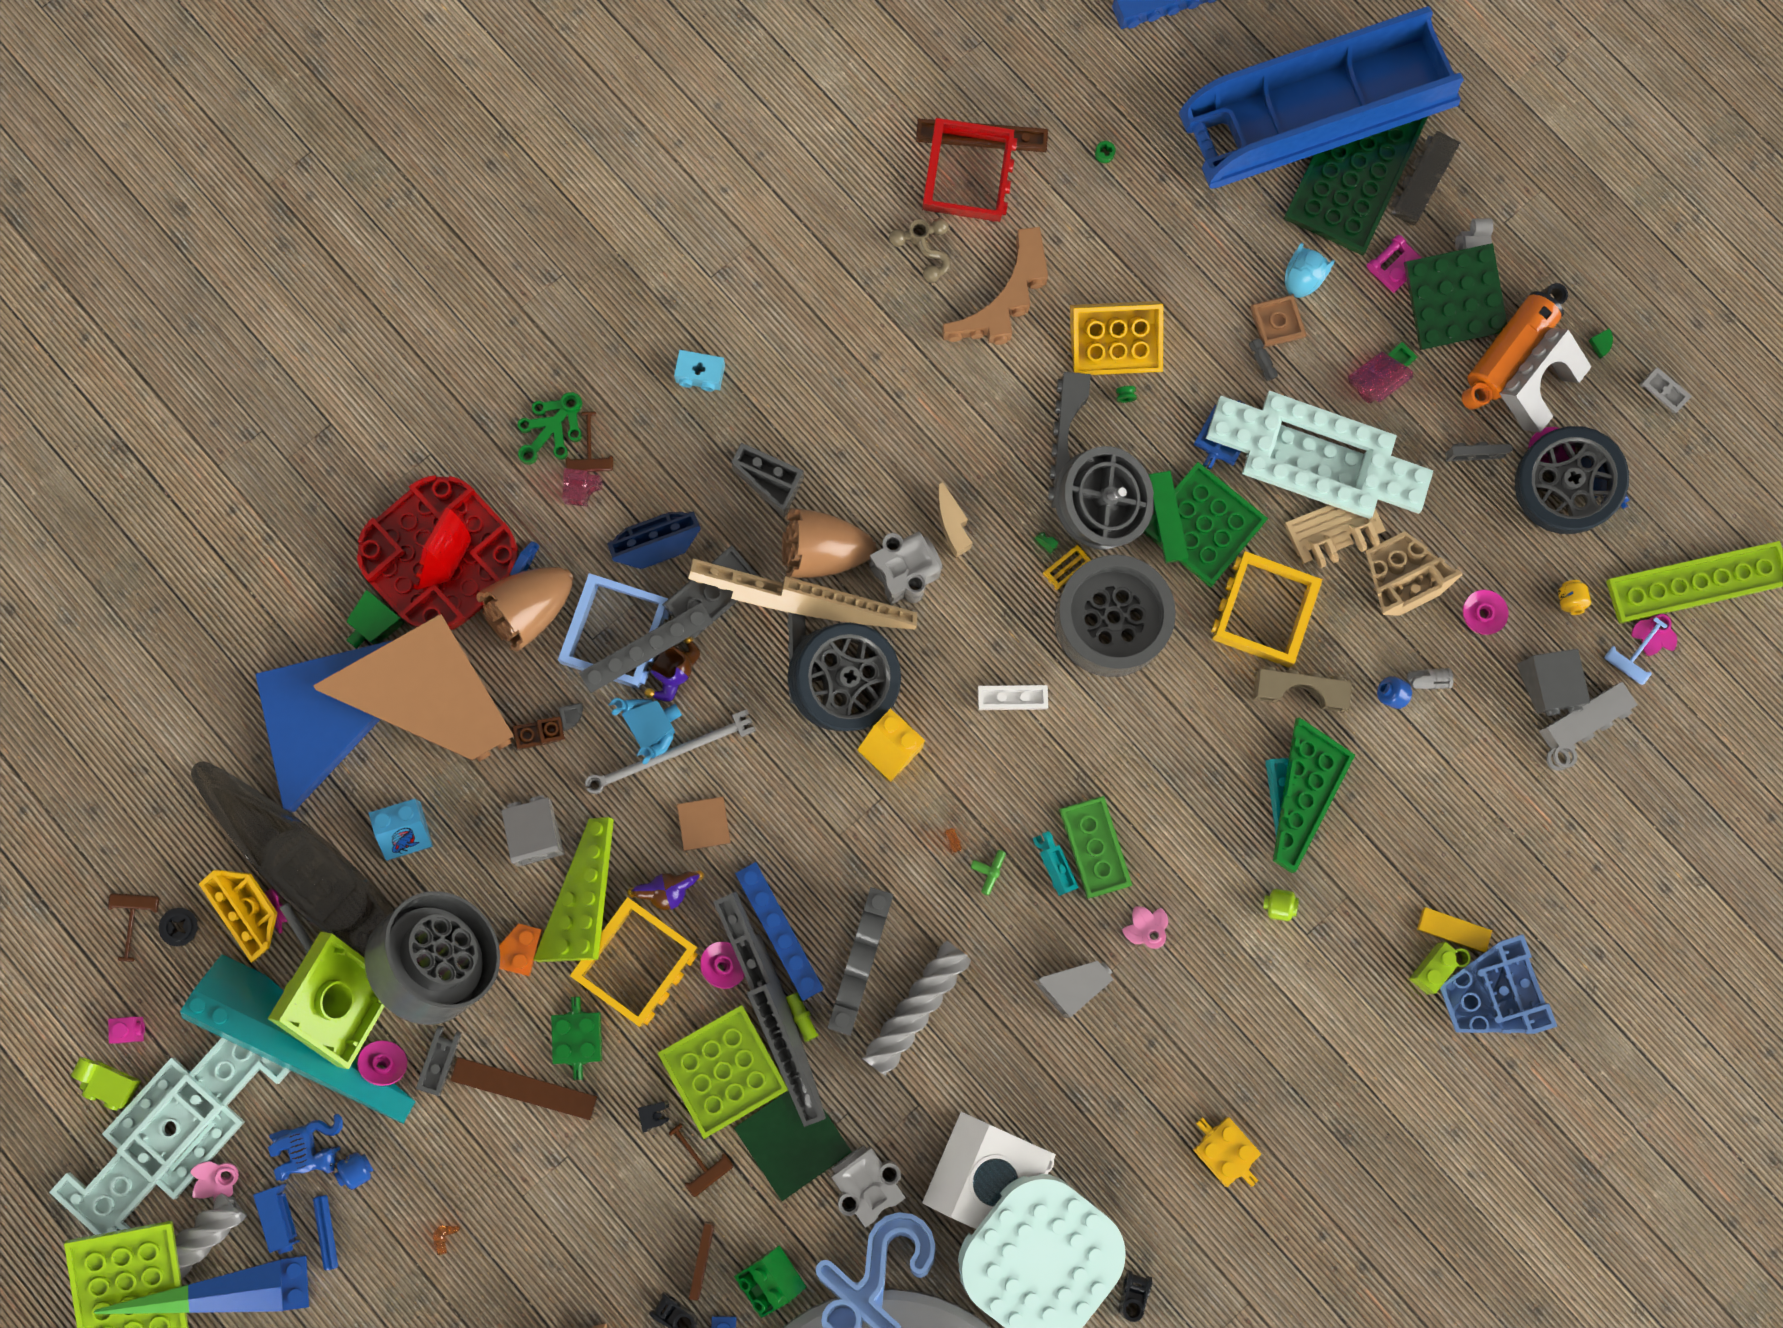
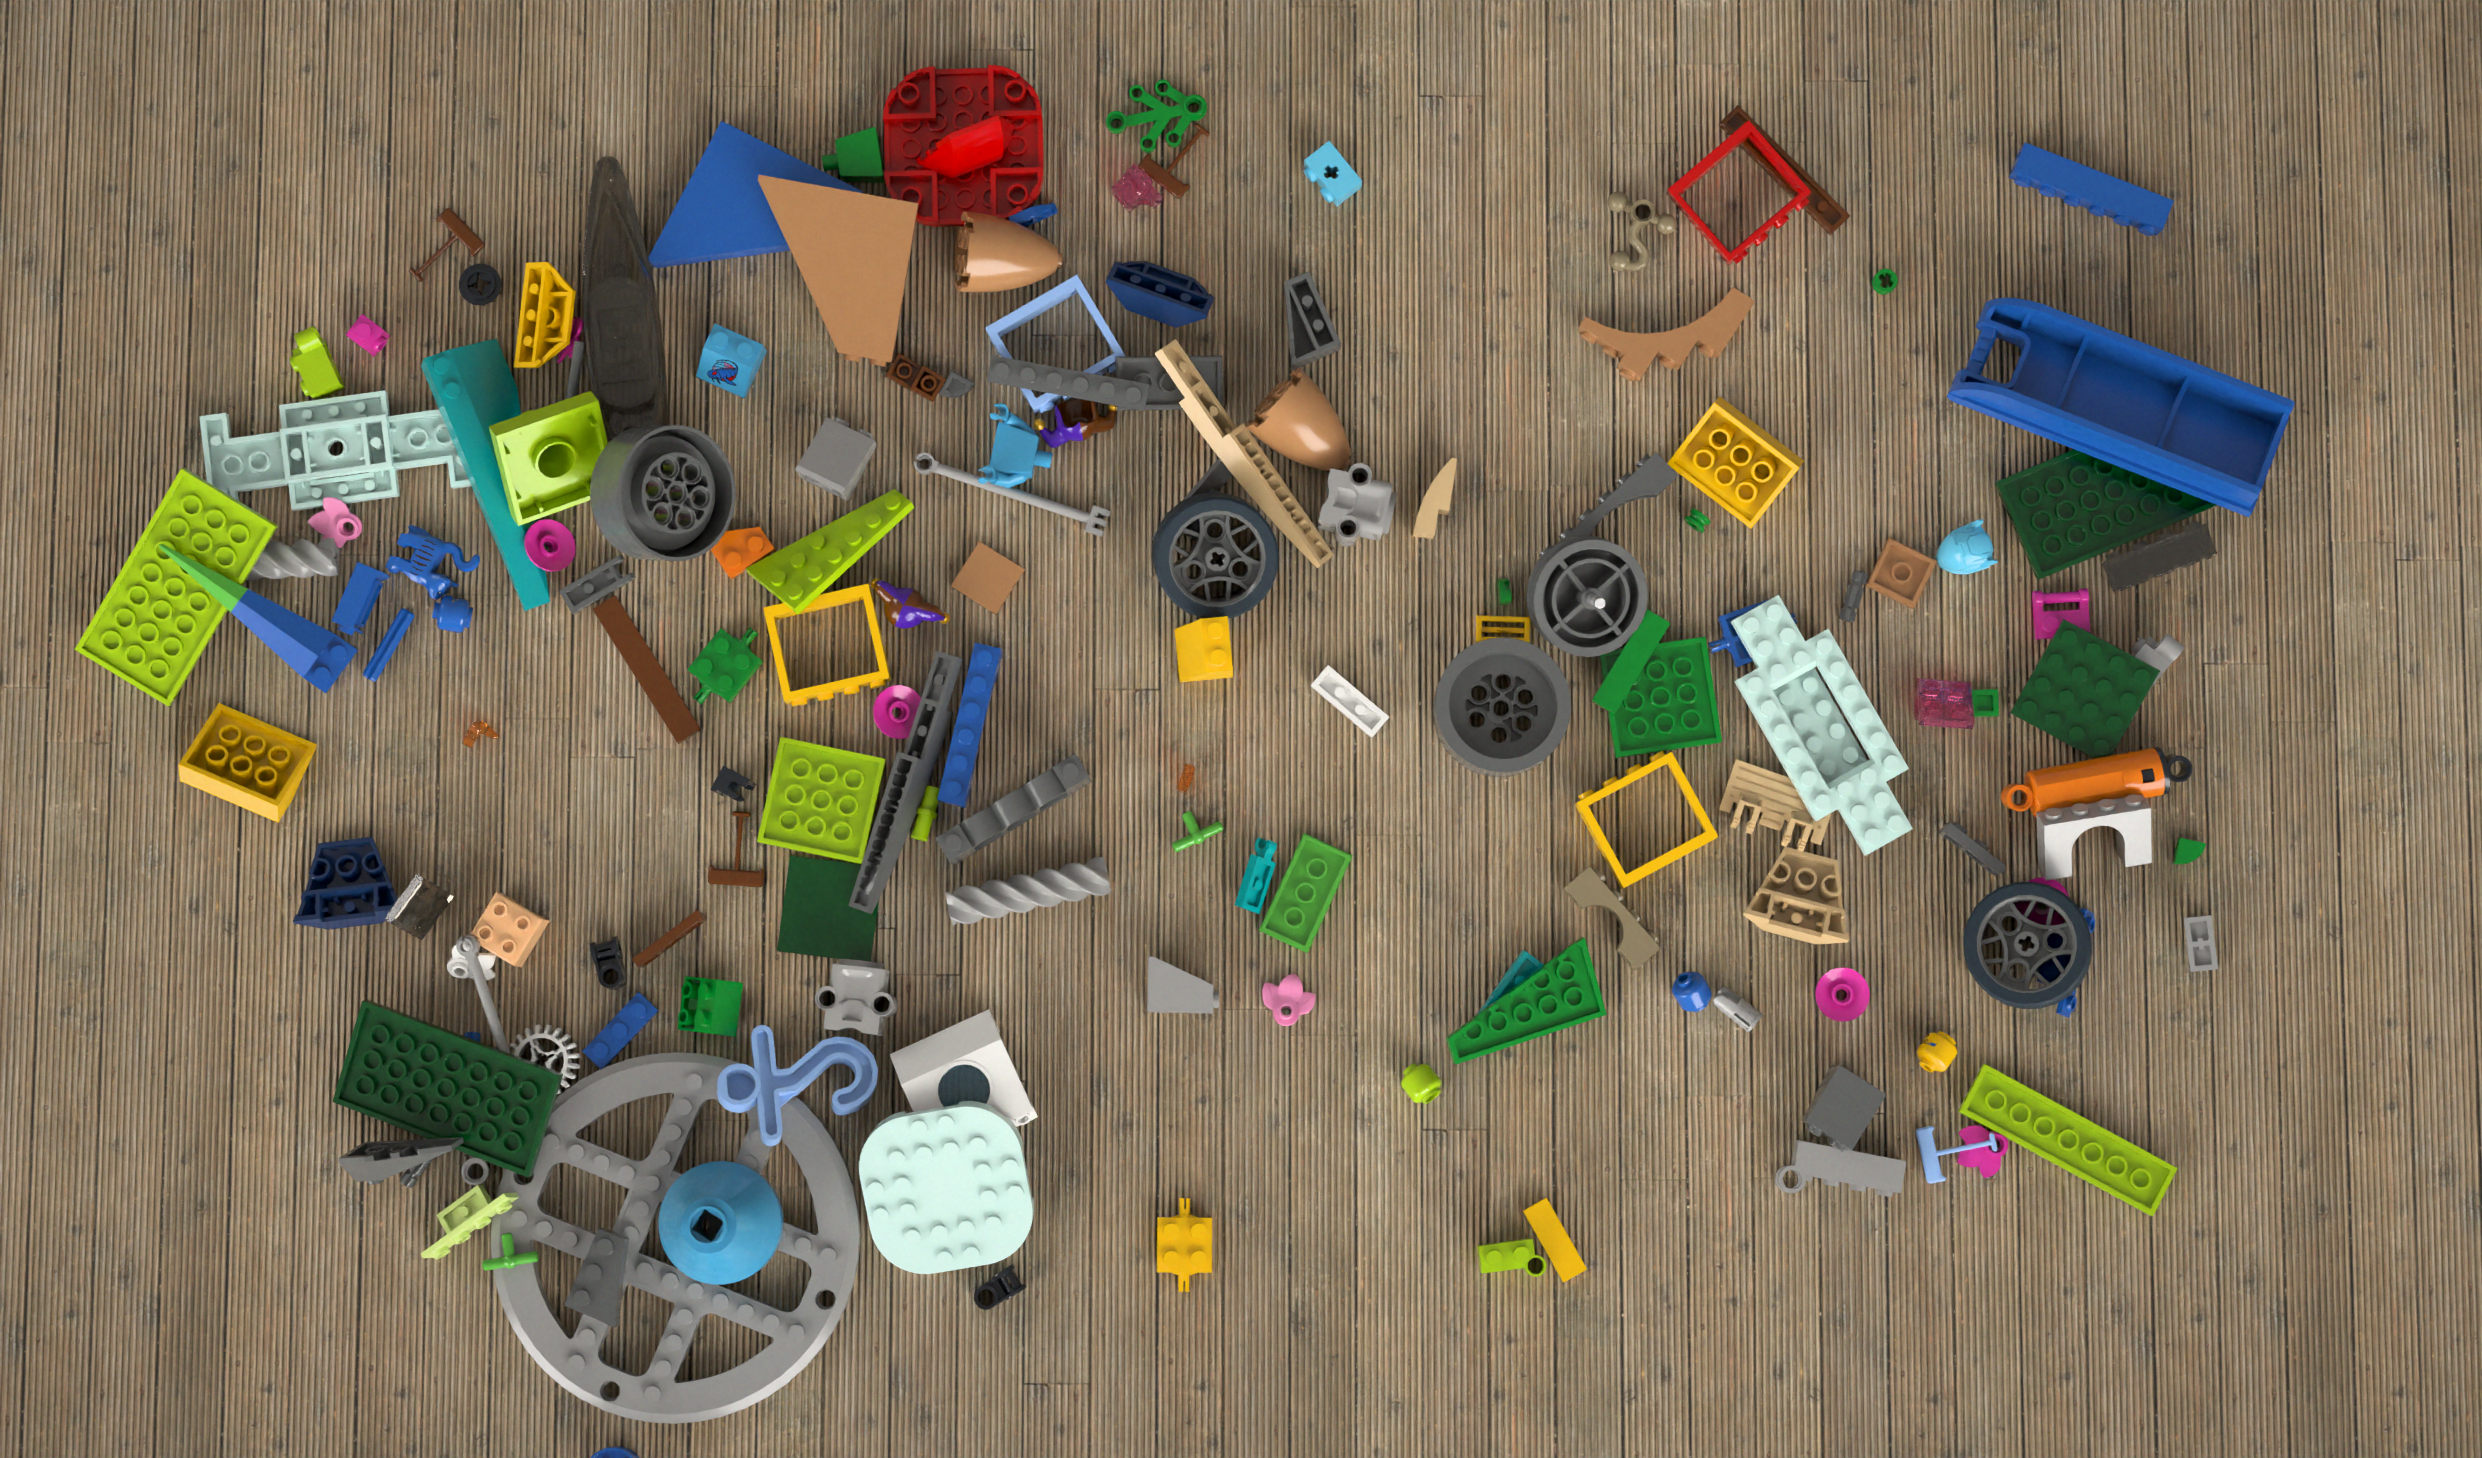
camera: 50 degrees right, 5 degrees up
(1498, 993) = (1539, 1323): medium blue wedge -> none

